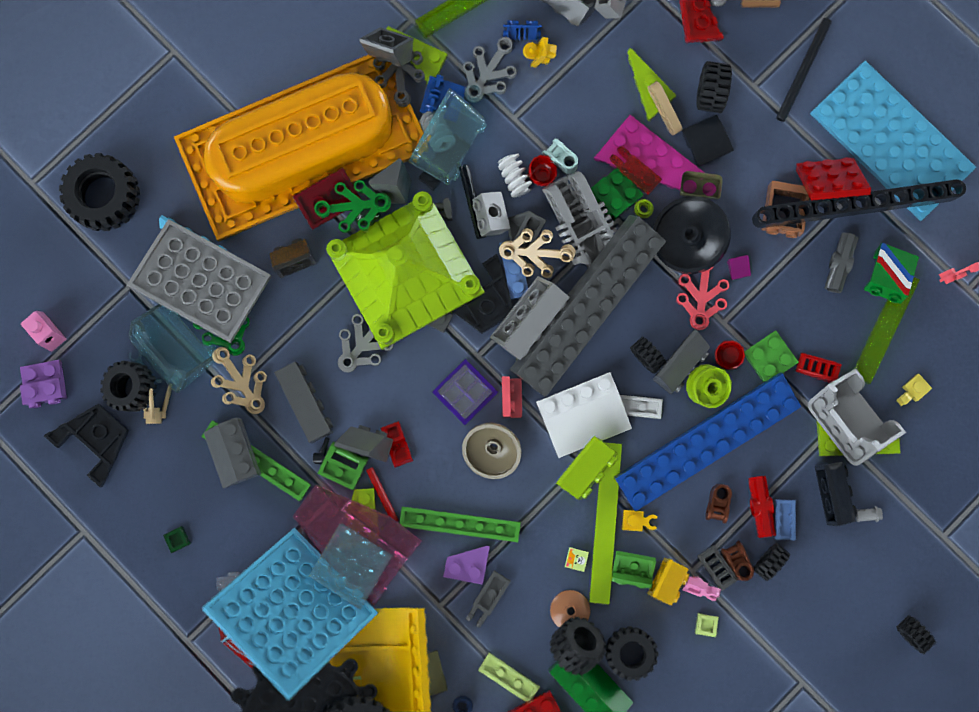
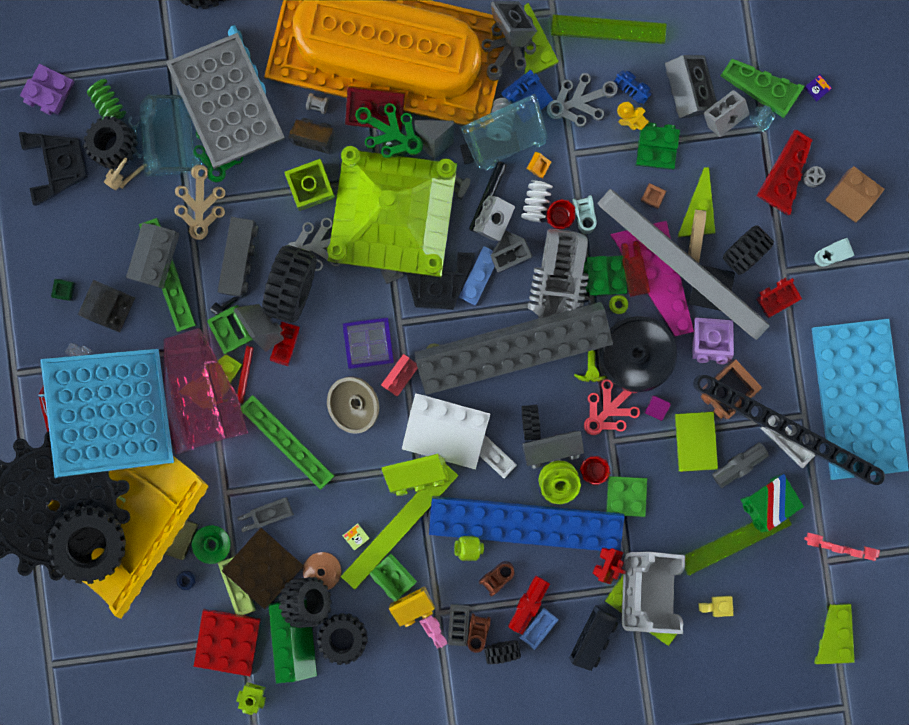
camera: 35 degrees right, 5 degrees up
(42, 328) = (77, 45): bright pink torso -> none
(96, 356) = (103, 100): none -> bright green piece
(223, 524) = (106, 306): none -> clear smoke slope
(276, 229) = (317, 103): none -> light grey bush
(320, 298) = (309, 185): none -> lime slope
(350, 565) = (177, 411): clear light blue plate -> none
(364, 389) = (289, 283): none -> black tyre
(461, 669) = (201, 545): none -> green dish
(468, 566) = (269, 478): medium lavender wing -> none
(494, 145) = (539, 165): none -> light orange plate
(519, 645) = (262, 568): none -> dark brown plate
(530, 317) = (459, 324): light grey slope -> none
(534, 253) = (503, 276): tan plant -> none
(577, 61) = (657, 146): none -> green plate
(604, 103) = (653, 196): none -> nougat tile
(635, 521) = (423, 541): yellow plate -> none
(666, 277) = (592, 373): none -> lime plant
(671, 136) = (683, 264): none -> light grey beam
(676, 497) = (468, 548): none -> lime head
(706, 178) = (678, 318): olive piece -> none
(706, 625) = (417, 661): yellowish green tile -> none
(742, 180) = (713, 340): none -> lavender plate
(767, 108) = (778, 298): none -> red bracket
(782, 40) = (836, 252): none -> light aqua piece
(791, 271) = (696, 441): none -> lime tile
(803, 70) = (833, 289): black piece -> none
(805, 423) = (612, 566): none -> red hips
(820, 361) = (666, 546): red slope -> none
(832, 178) = (784, 394): red plate -> none
(869, 514) = (607, 674): light grey pin -> none
(876, 220) = (797, 453): none -> white tile

